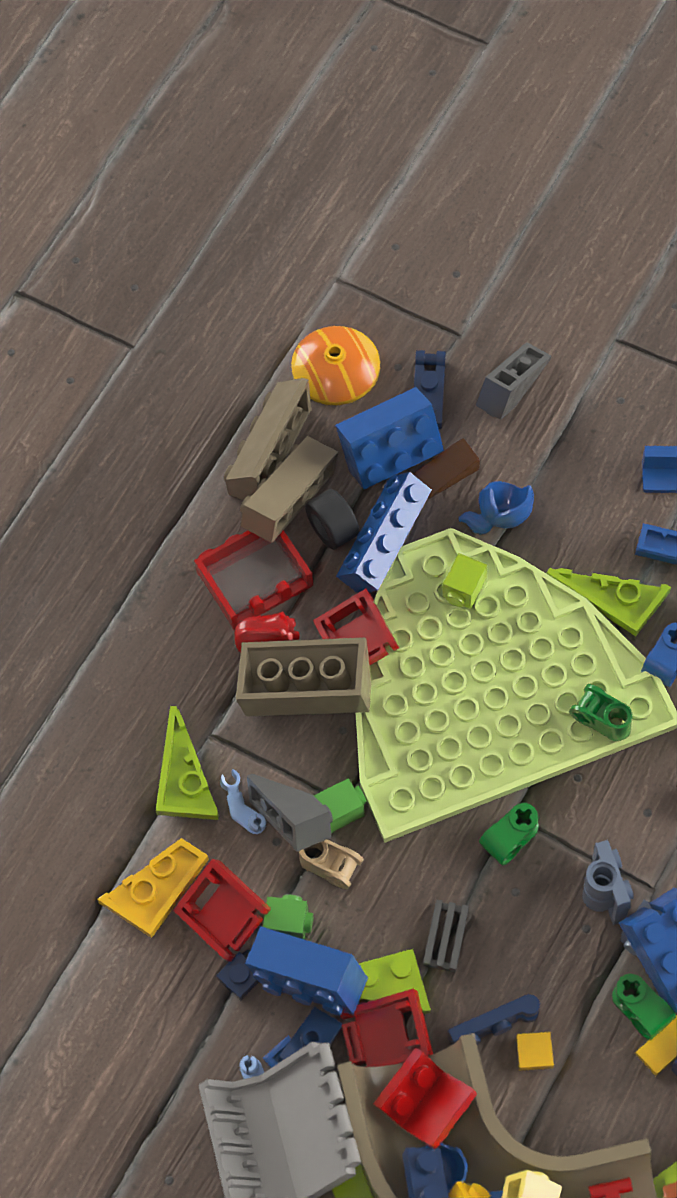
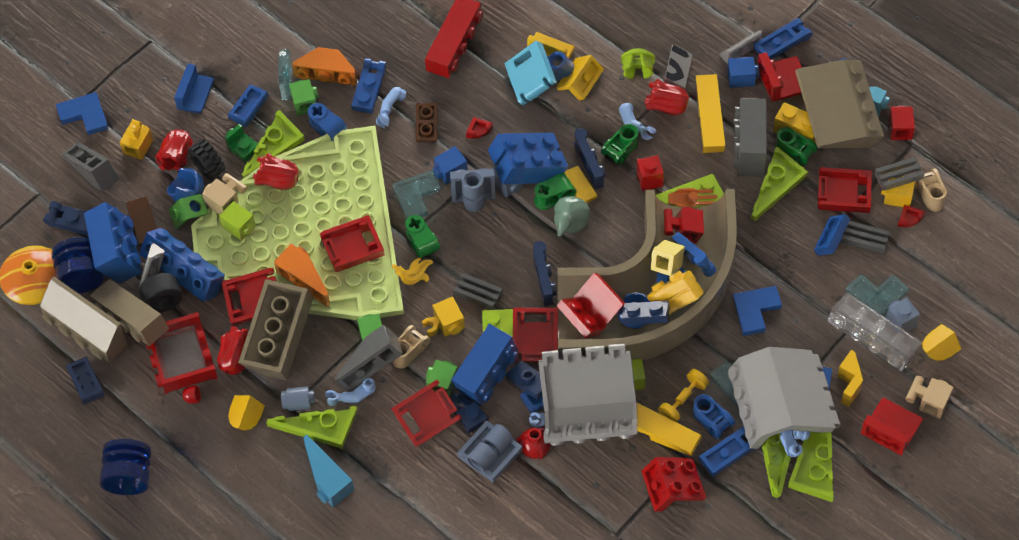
camera: 80 degrees left, 5 degrees down
(65, 551) = (125, 467): none -> clear blue wheel
(107, 803) = (330, 479): none -> dark azure slope
(156, 889) = (396, 455): yellow wing -> none
(181, 676) = (245, 412): none -> yellow brick
(186, 1013) = (490, 450): none -> sand blue plate
(191, 471) = (85, 380): none -> dark blue plate
(196, 604) = (192, 394): none -> red hinge
(215, 735) = (297, 398): none -> sand blue brick
(229, 1064) = (533, 447): none -> red piece
(336, 406) = (75, 265): none -> clear blue wheel
(365, 494) = (153, 262): none -> light grey slope
(385, 902) = (447, 317): none -> yellow brick
(404, 686) = (298, 269): none -> orange slope
(451, 840) = (415, 272): none -> yellow piece
(463, 508) = (181, 211): none -> bright green bracket
(467, 737) = (347, 246): none -> red container
(499, 549) = (220, 195): none -> tan brick
(535, 1051) = (566, 257): yellow tile -> none
(553, 608) = (276, 173): none -> red piece
(556, 515) = (206, 159): none -> black tyre
(564, 473) = (174, 150): none -> red piece
(568, 422) = (136, 140): none -> yellow brick
(590, 801) = (411, 190): none -> clear light blue tile
(598, 708) = (355, 164): green piece -> none
(602, 1039) = (571, 215): none -> sand green hair
(604, 351) = (85, 108): none -> blue tile
(604, 553) = (240, 143): none -> green bracket
(644, 843) = (449, 162): none -> blue brick

